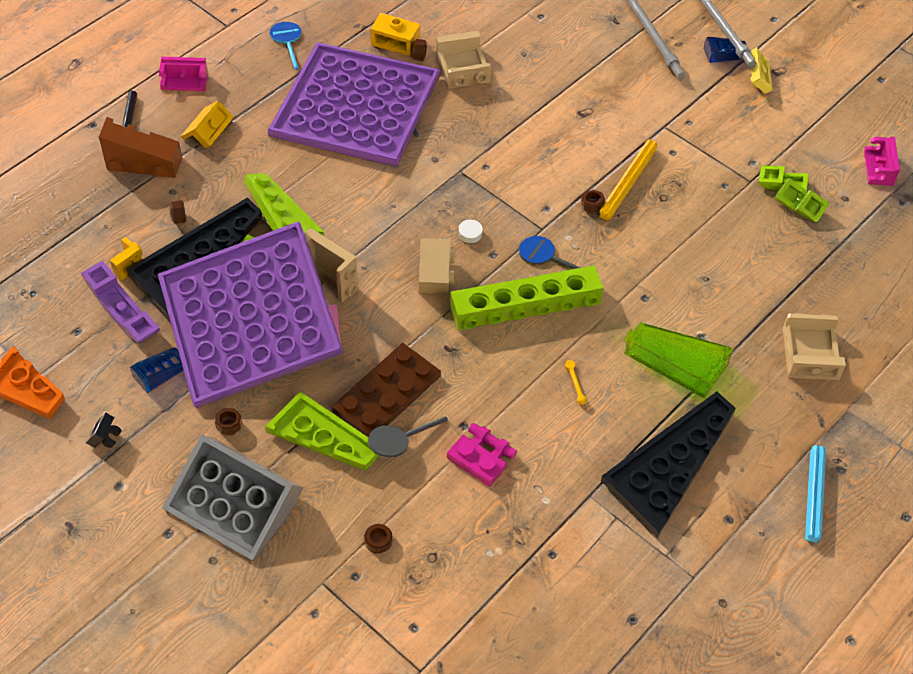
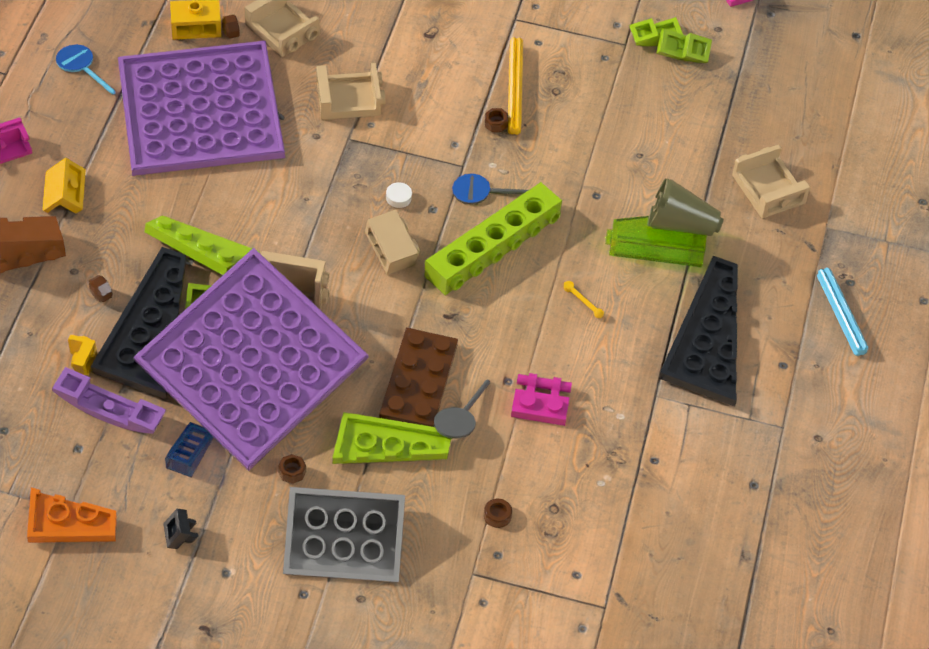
camera: 30 degrees left, 0 degrees up
(480, 134) = (349, 93): none -> tan panel
(703, 339) = (683, 211): none -> olive cone

